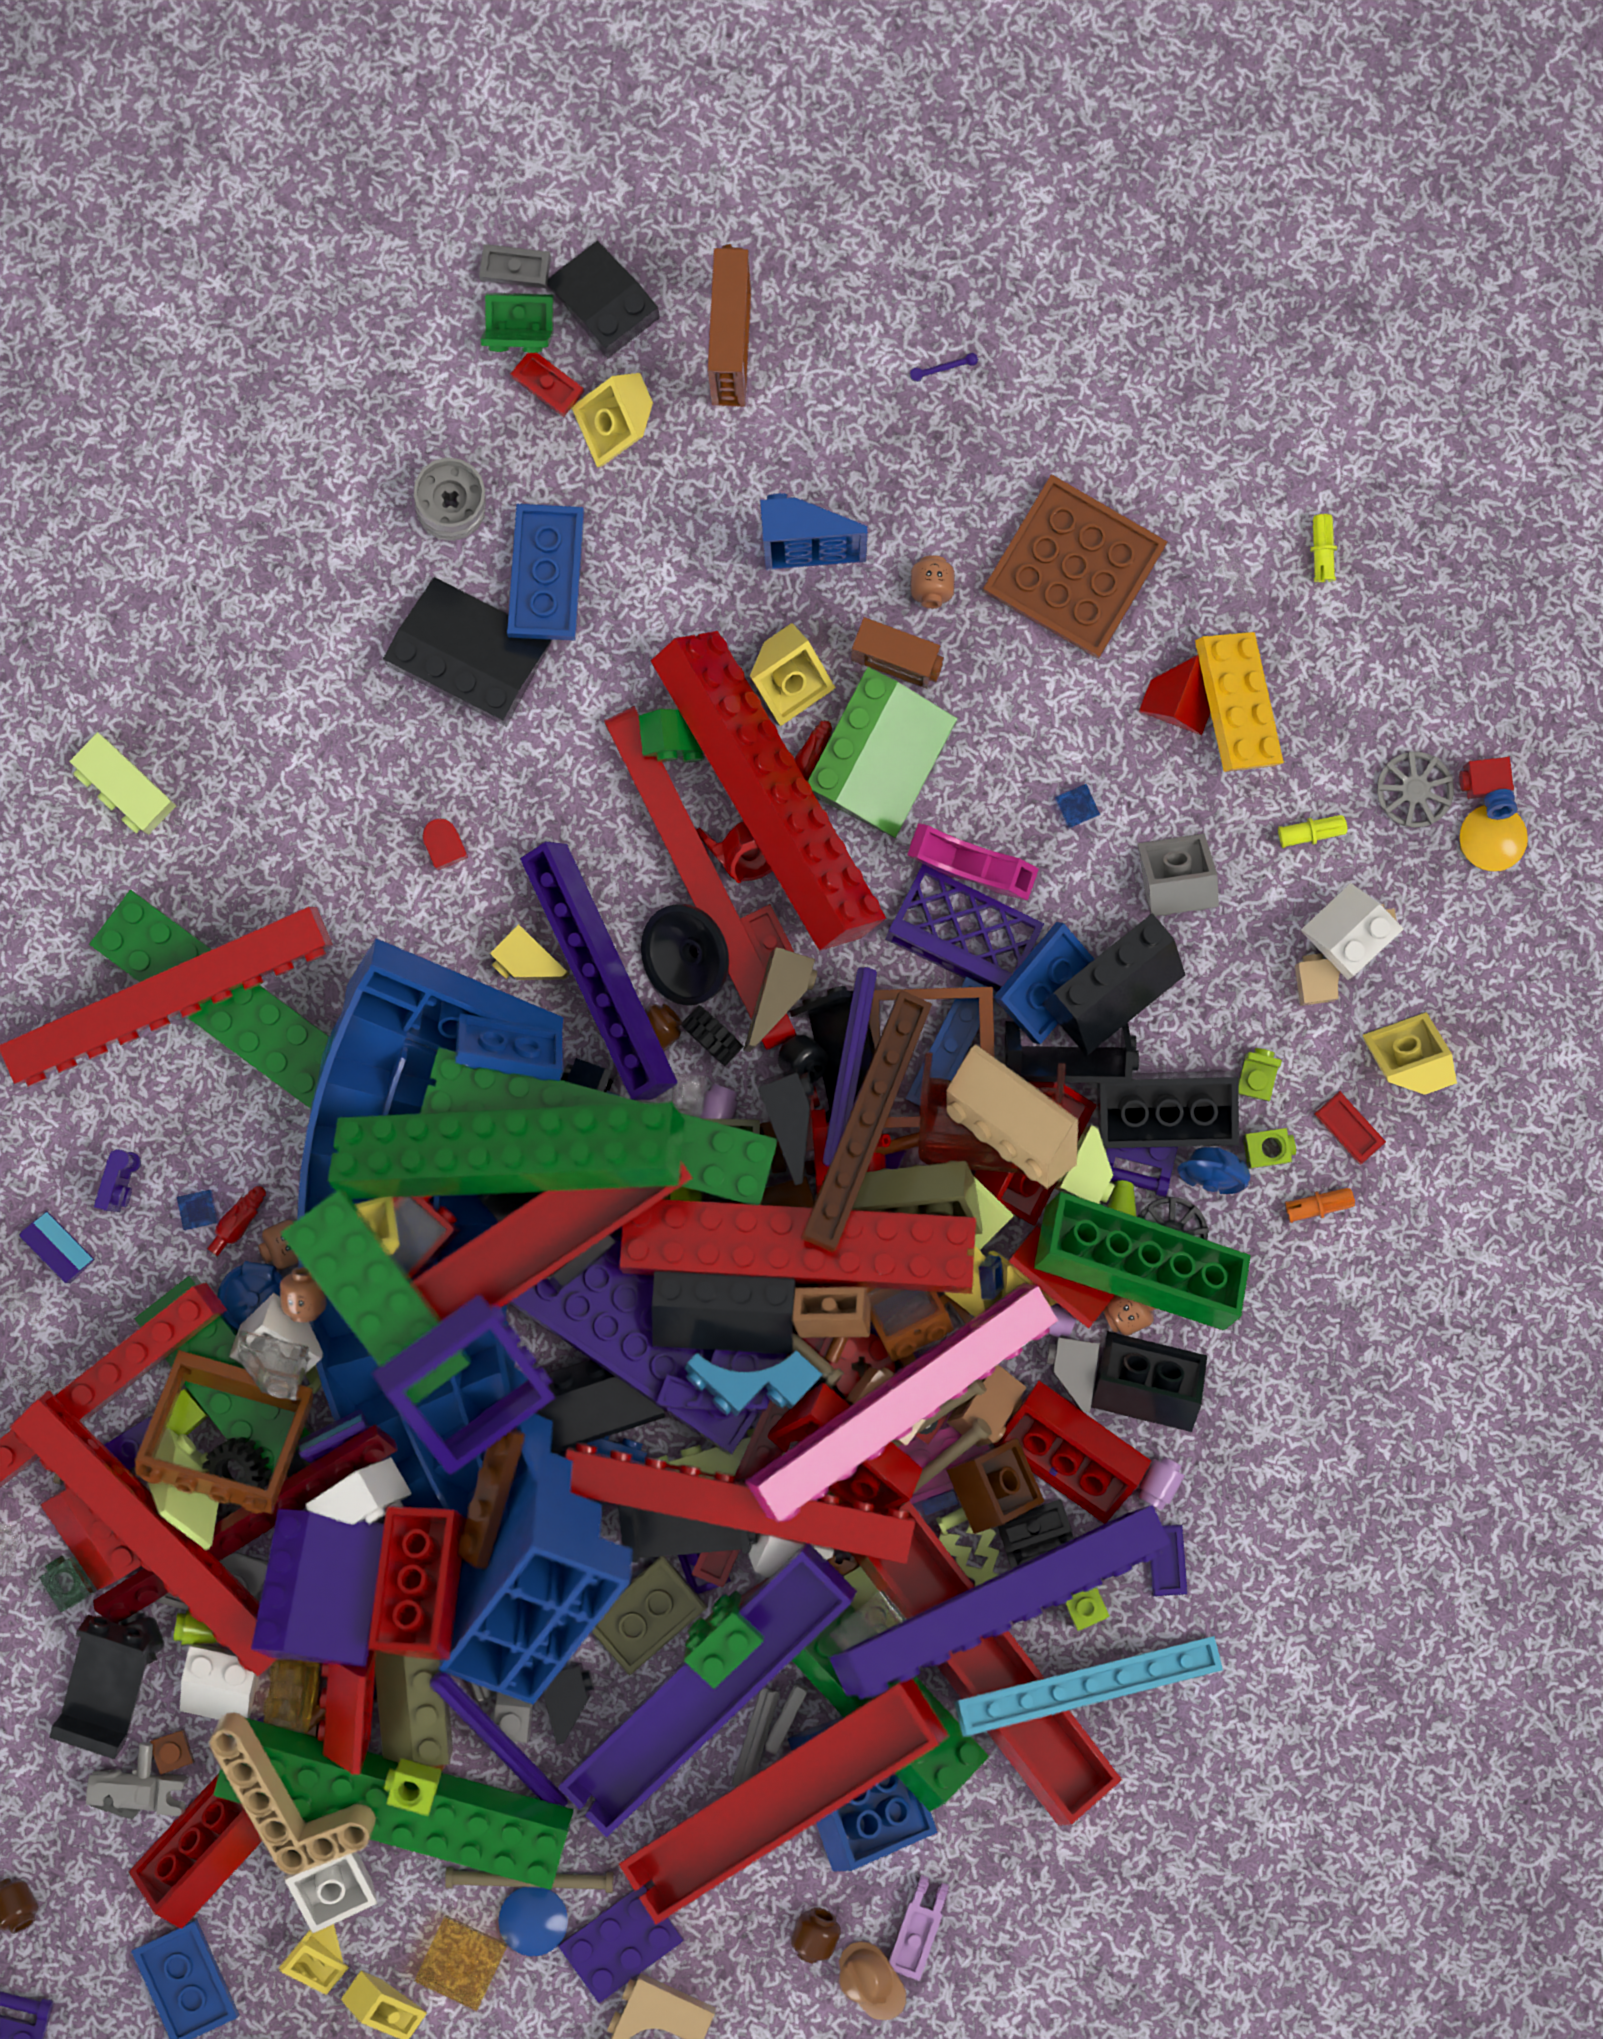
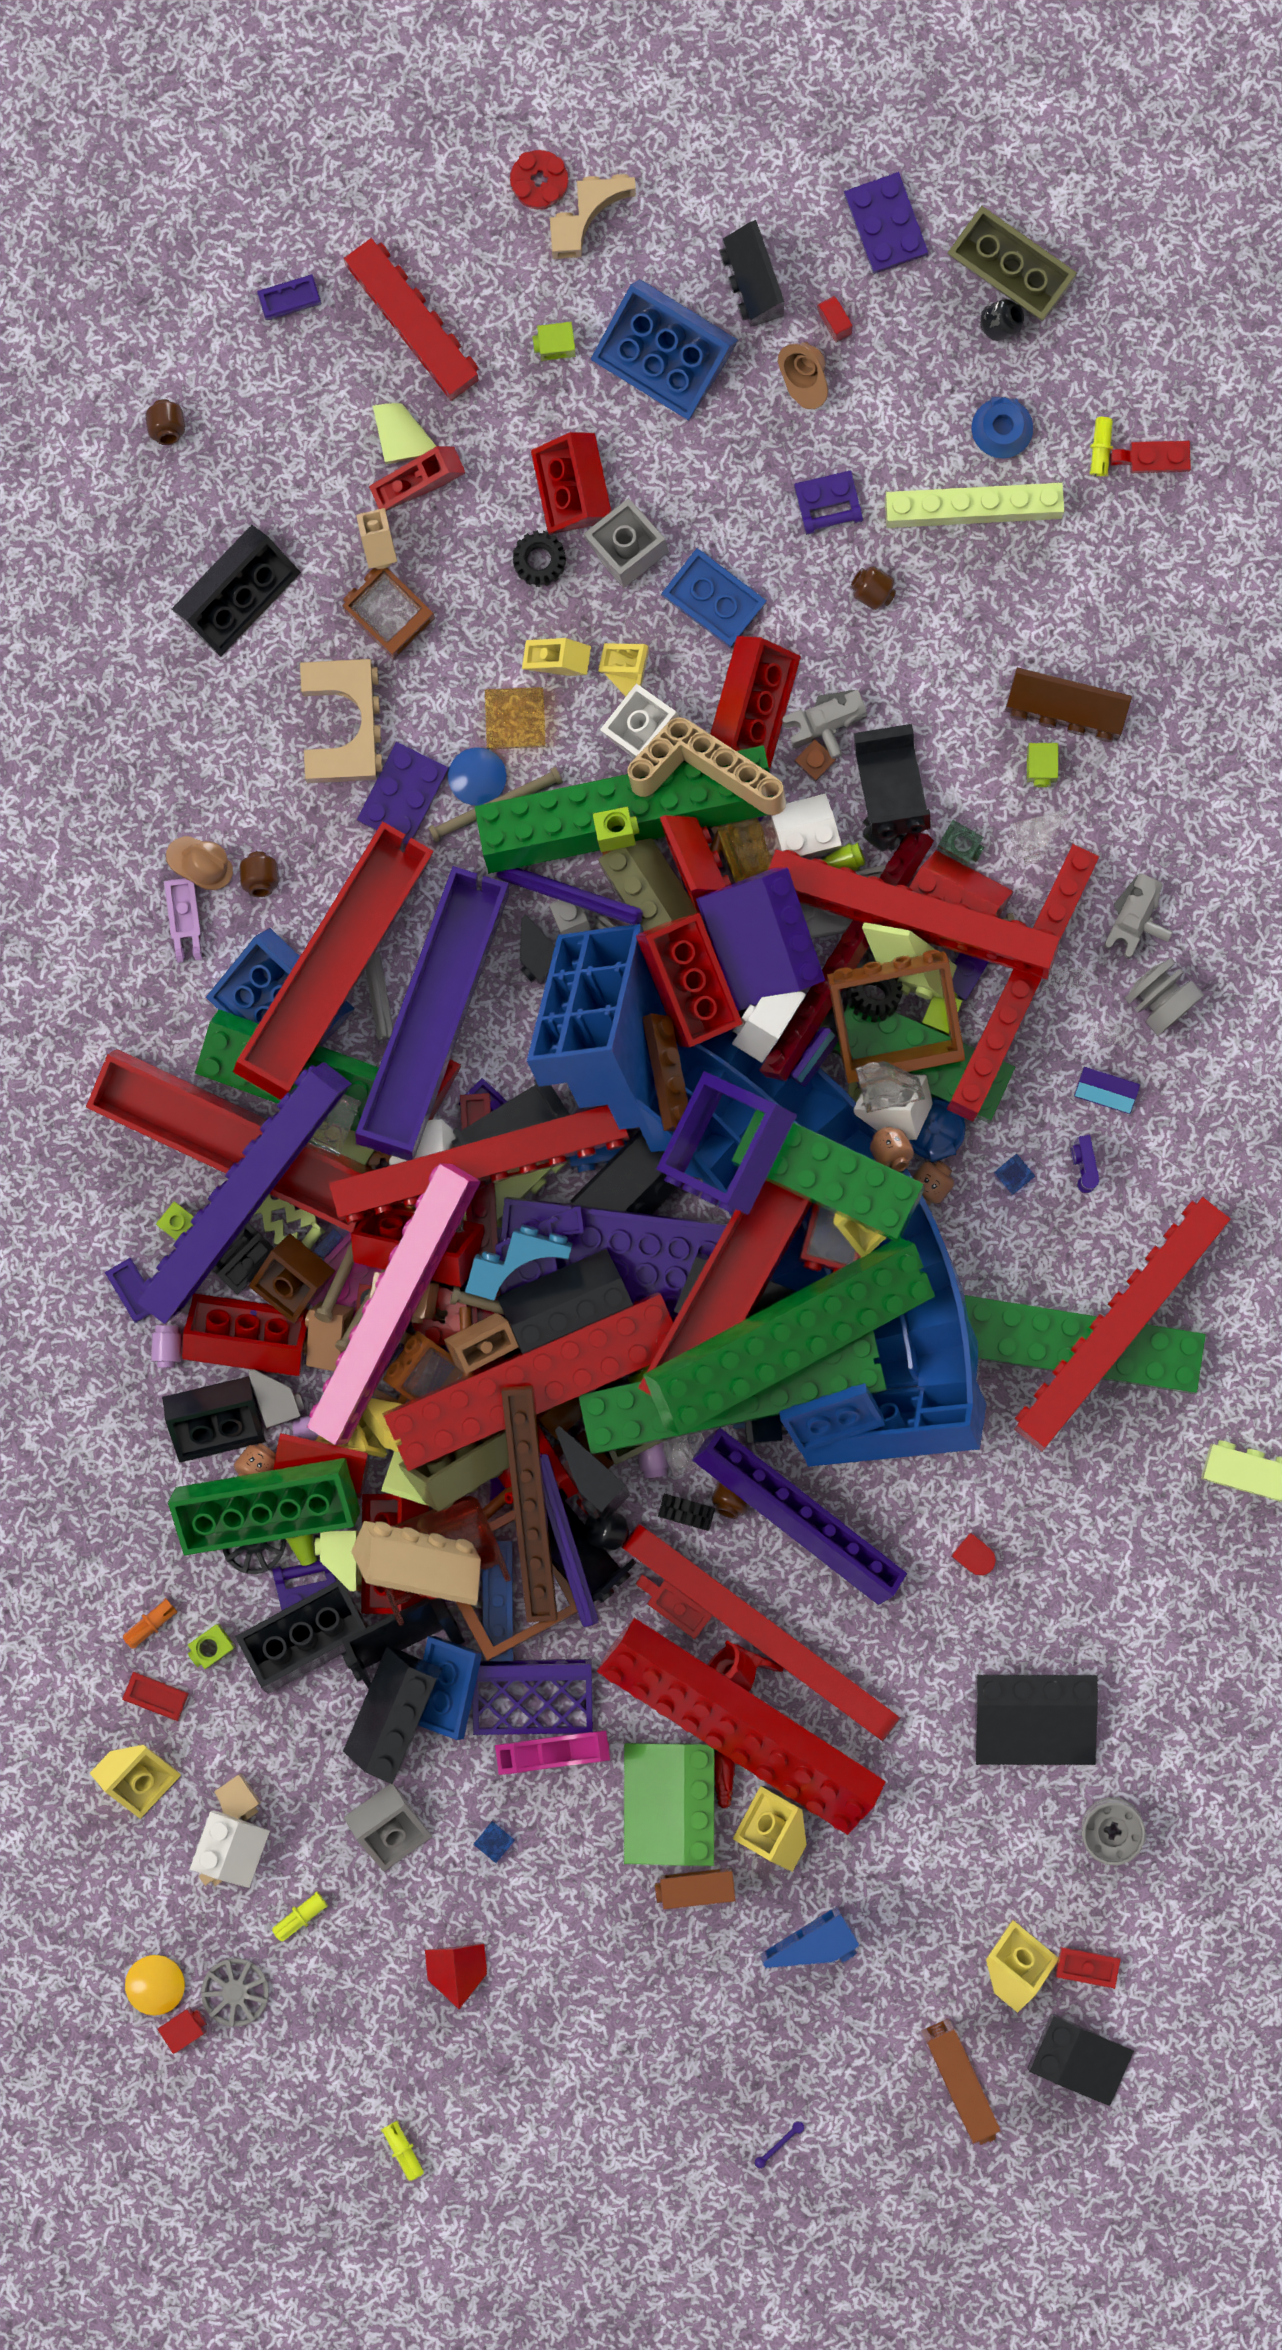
camera: 155 degrees right, 0 degrees up
(237, 1219) = (979, 1182): red piece -> none
(515, 266) = (1163, 2049): flat silver plate -> none
(518, 321) = (1135, 2002): green bracket -> none
(525, 958) = (863, 1498): light yellow slope -> none
(546, 572) = (1007, 1813): blue plate -> none
(648, 1615) = (504, 1046): olive tile -> none
(668, 737) = (842, 1728): green brick -> none
(672, 956) = (746, 1555): black dish -> none
(720, 1640) = (440, 1054): green bracket -> none
(783, 984) = (650, 1578): dark tan slope -> none
(785, 1718) = (363, 1022): light grey tile -> none
(932, 581) = (698, 1962): nougat head -> none
(991, 1277) = (374, 1434): clear blue tile -> none
(1074, 566) = (592, 2034): dark orange plate -> none
(1088, 1686) = (145, 1163): medium azure plate -> none
(1215, 1171) = (243, 1607): blue piece -> none
(1239, 701) = (408, 1990): yellow plate -> none
(1258, 1074) = (247, 1701): lime bracket -> none
(1500, 804) = (162, 2012): blue bush -> none

